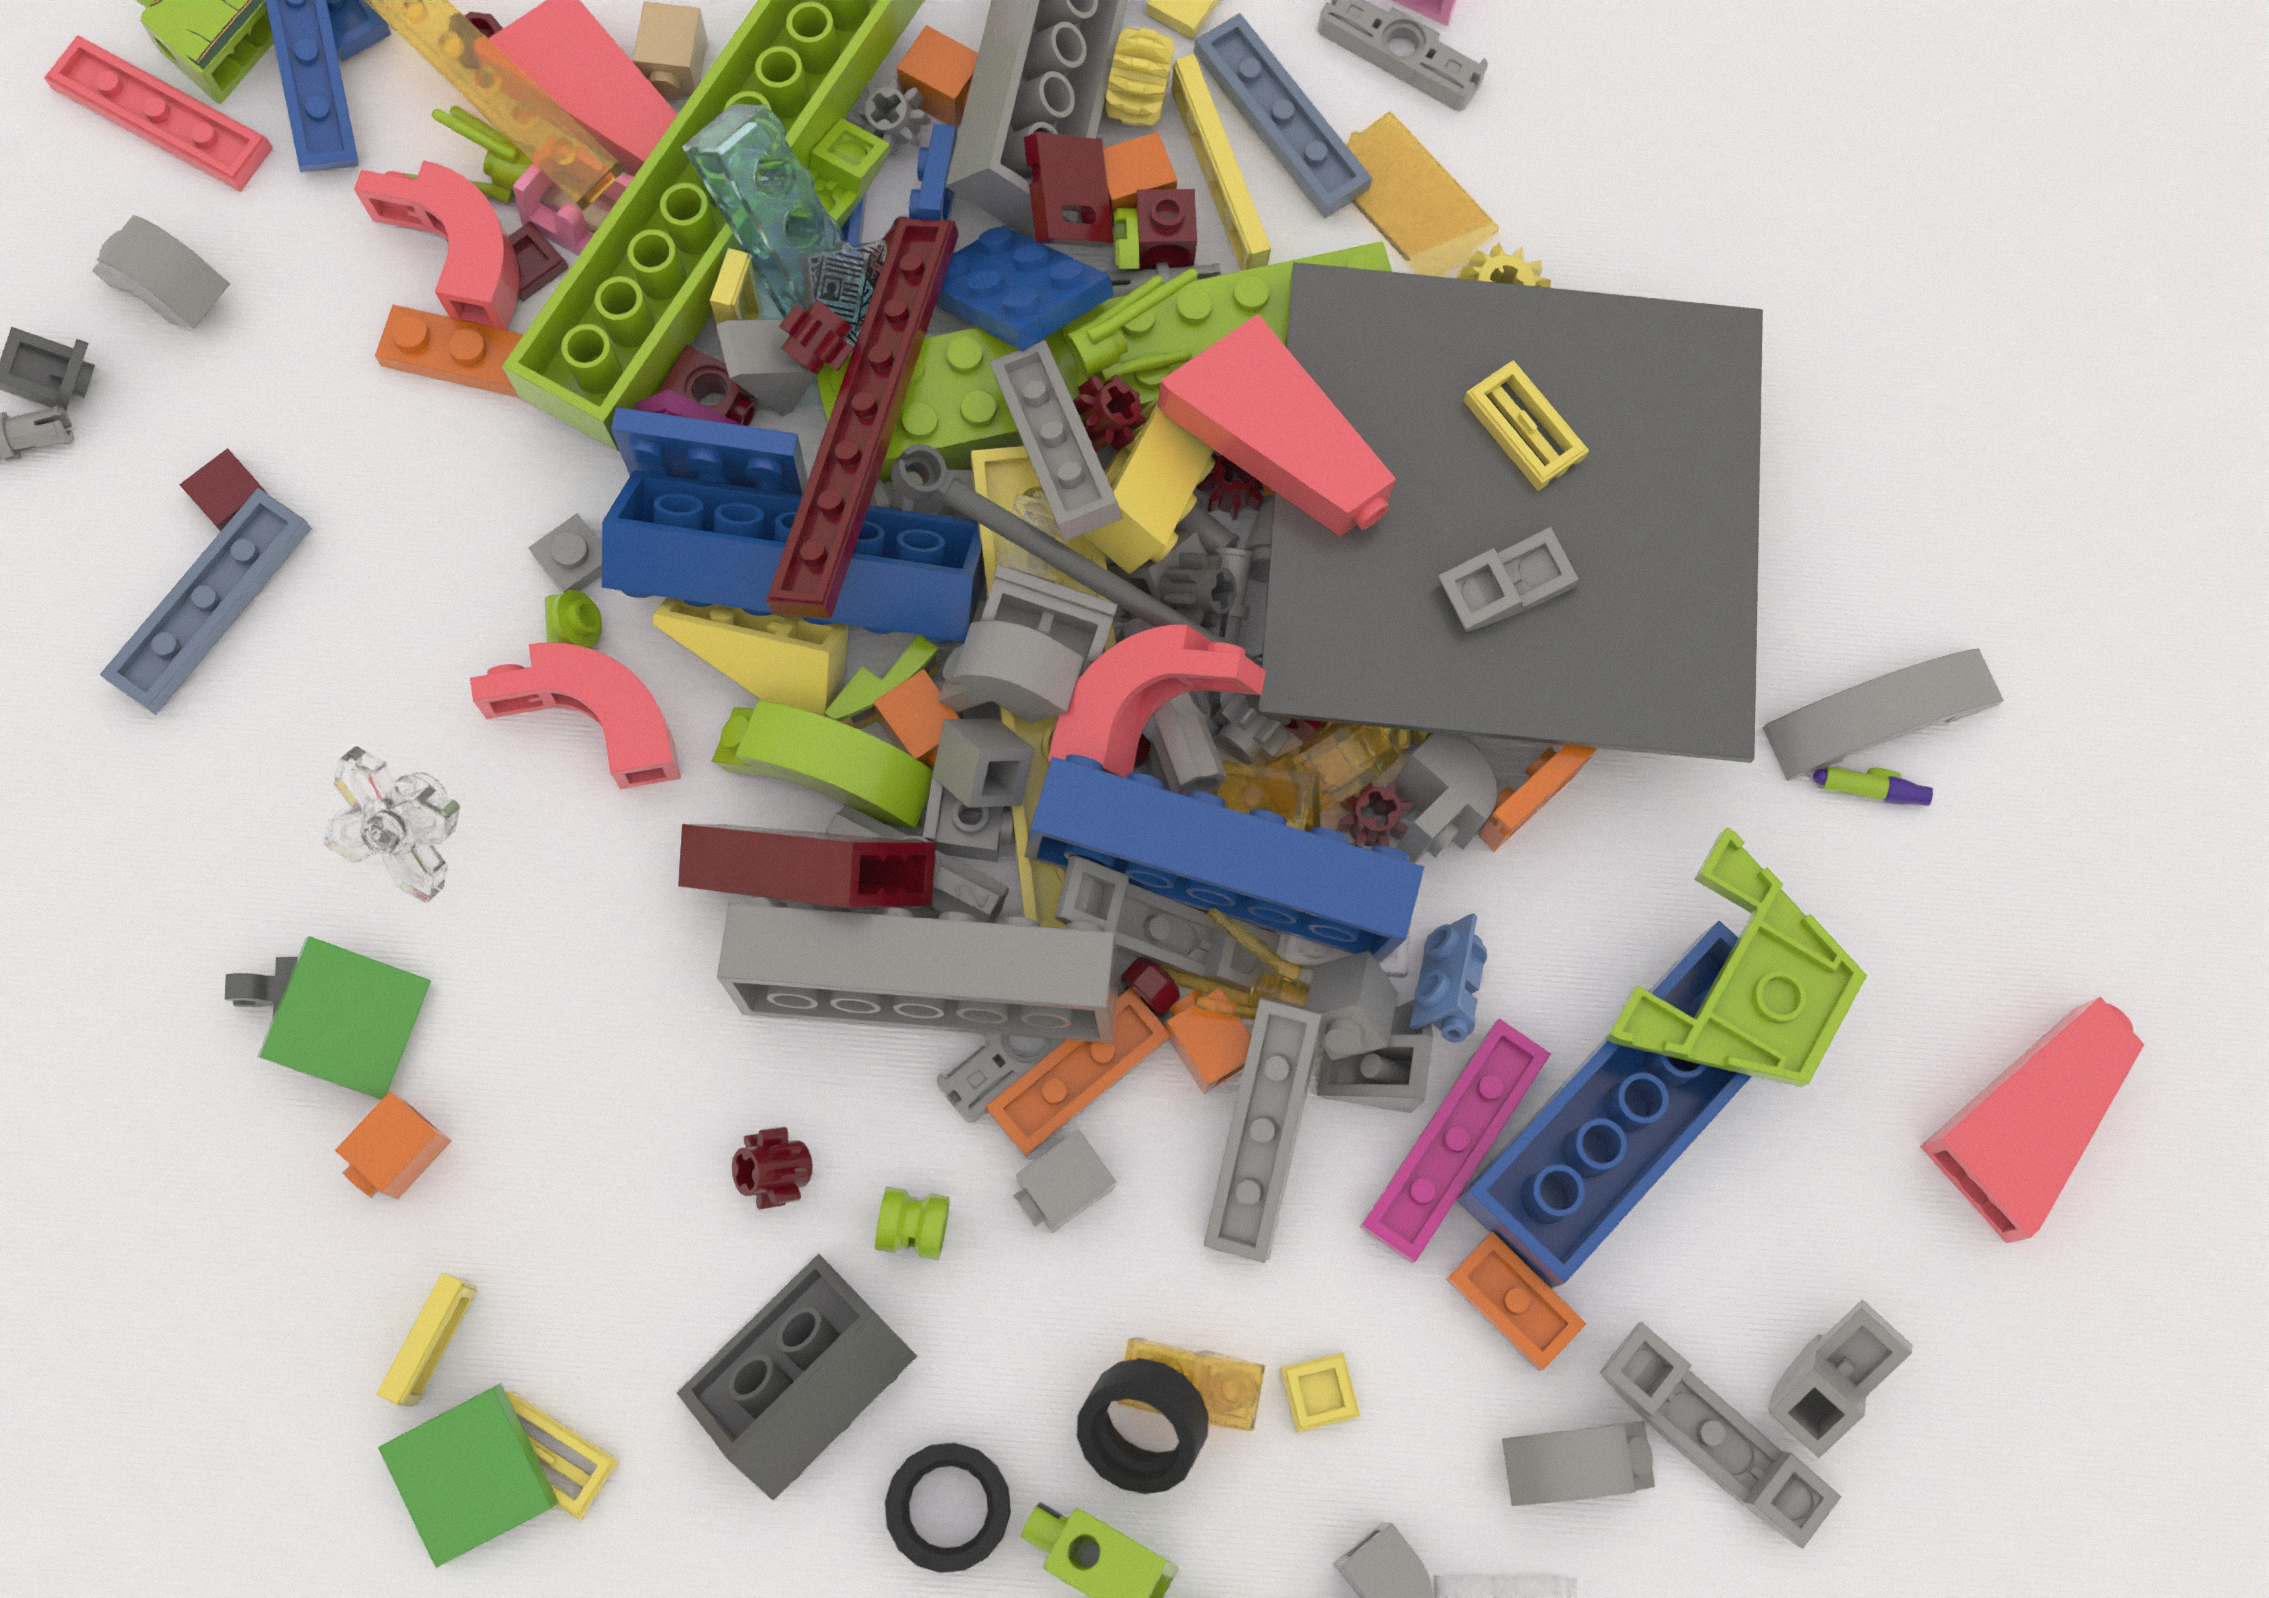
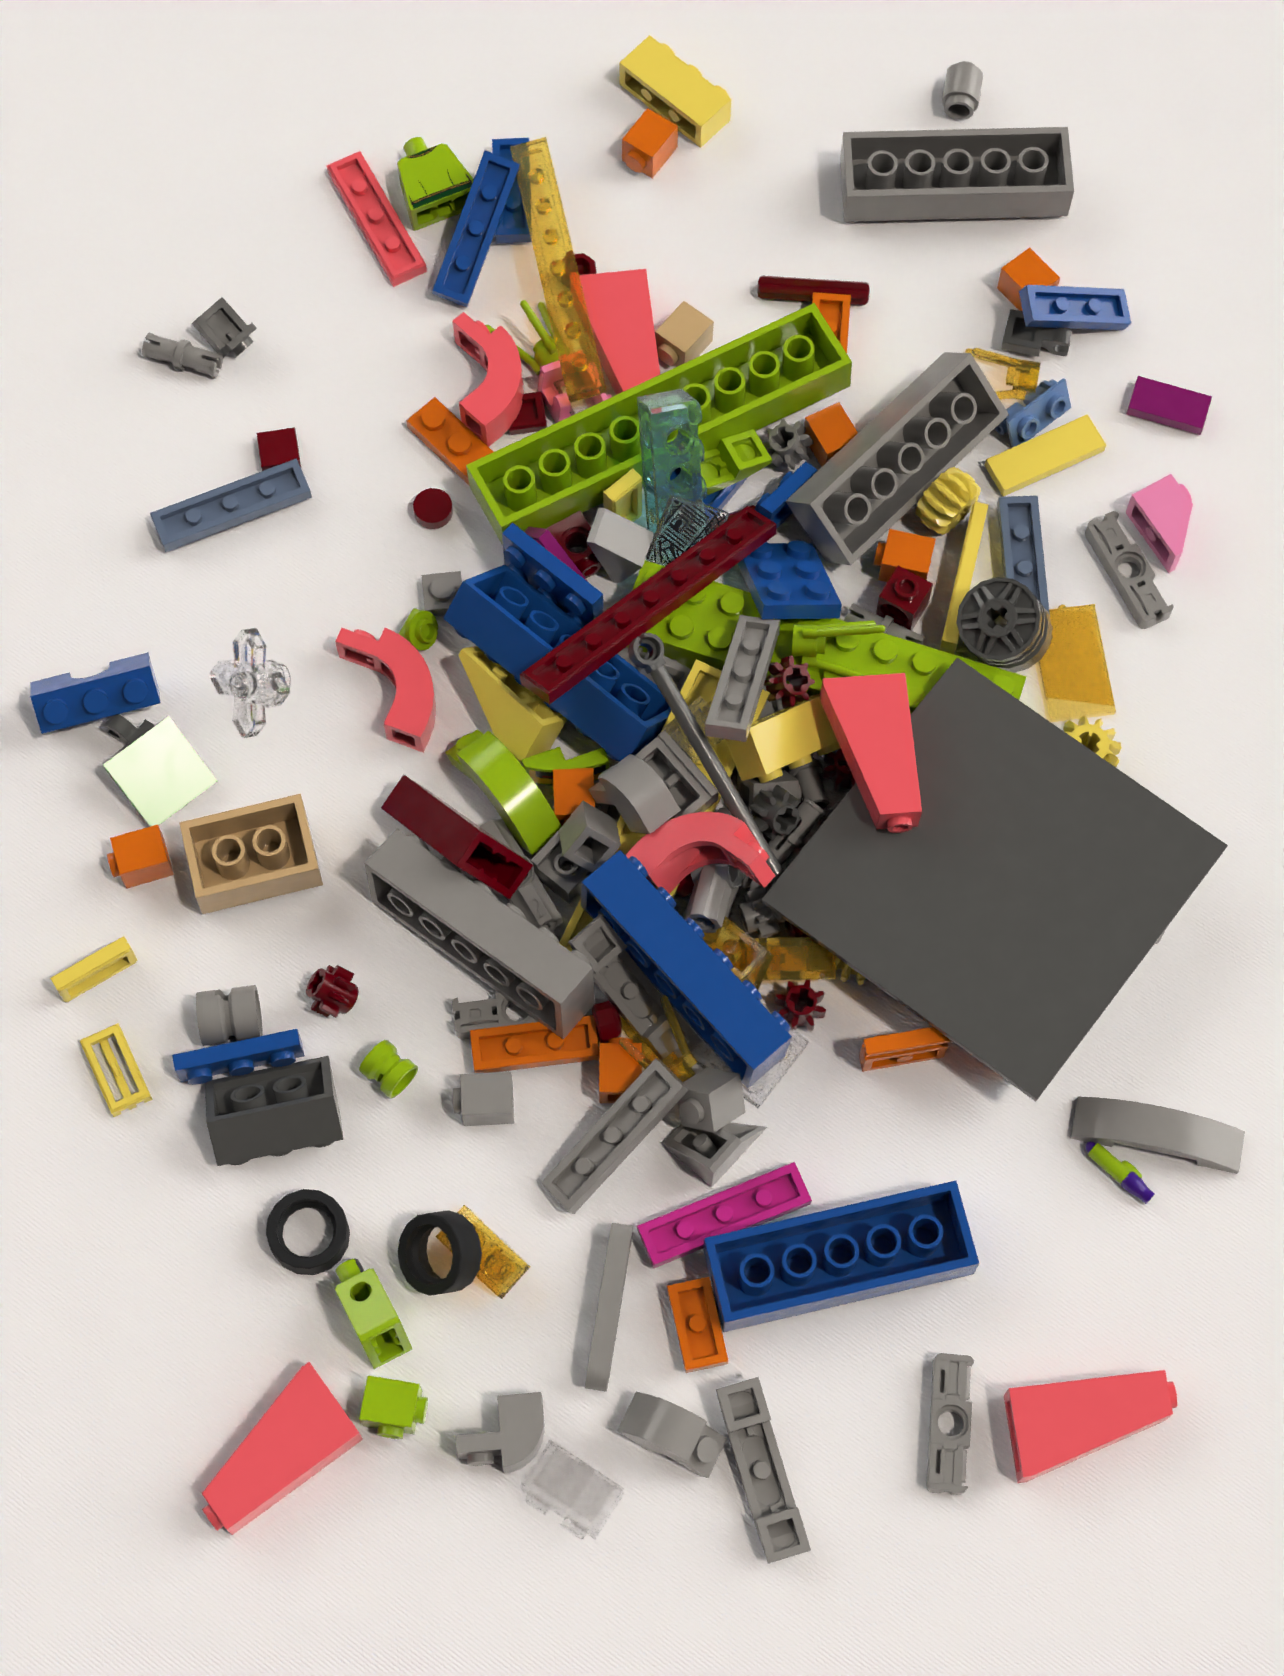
camera: 40 degrees right, 5 degrees down
(151, 1000) = (73, 701): none -> blue arch
(160, 272) = (319, 310): light grey brick -> none
(468, 1475) = (70, 1052): bright green tile -> none
(485, 452) = (433, 508): none -> dark red tile
(542, 1053) = (250, 853): none -> tan brick
(654, 1287) = (228, 1015): none -> light grey wheel
(703, 1335) = (238, 1057): none -> blue plate
(816, 337) = (649, 546): dark red gear -> none
(1068, 177) = (860, 535): dark red piece -> none
(1126, 238) = (870, 596): lime tile -> none
(1319, 1392) = (553, 1305): light yellow tile -> none
(1335, 217) = (1007, 647): none -> dark grey wheel
(1395, 1351) = (609, 1307): none -> light grey beam
(1448, 978) = (790, 1114): medium blue hinge -> none
(1451, 789) = (853, 1014): light grey brick -> none
(1509, 439) = (1032, 861): light yellow tile -> none
(1509, 581) = (955, 911): light grey slope -> none
(1774, 995) = (954, 1238): lime wing -> none
(1831, 1377) = (852, 1482): light grey brick -> none
(1907, 1265) = (948, 1453): none -> light grey piece

